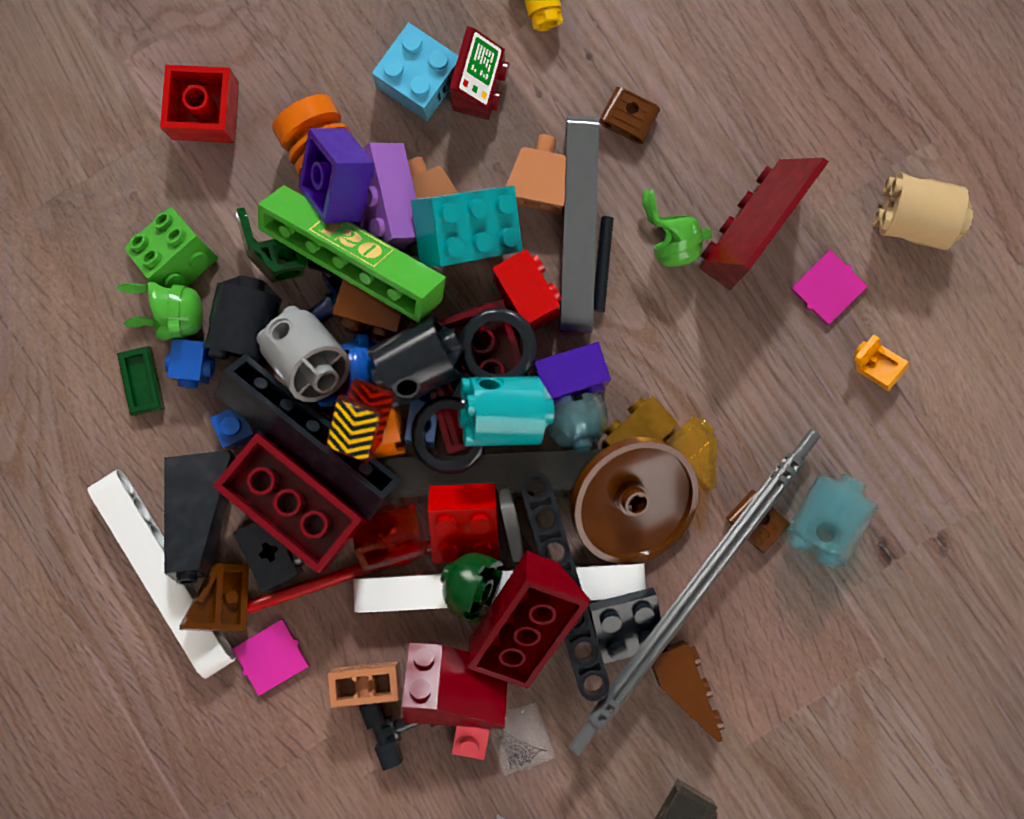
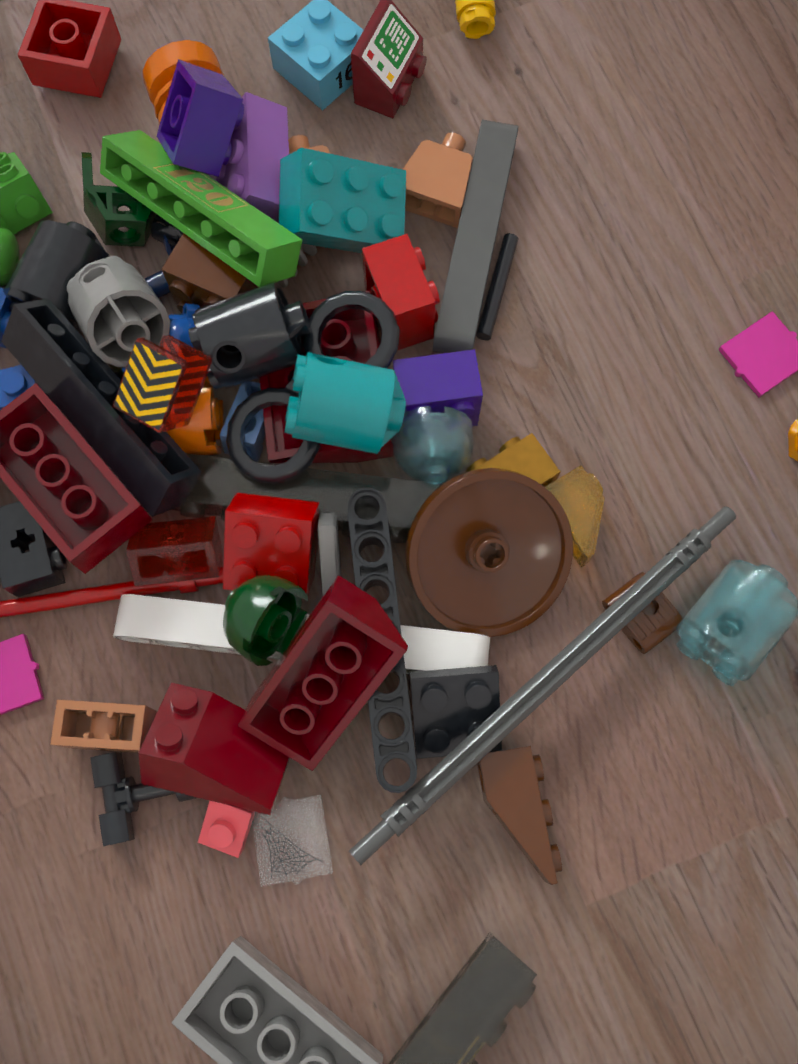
camera: 10 degrees right, 10 degrees down
(629, 115) = (554, 133): reddish brown piece -> none
(682, 237) = (596, 258): bright green hair -> none
(760, 218) = (692, 257): dark red slope -> none

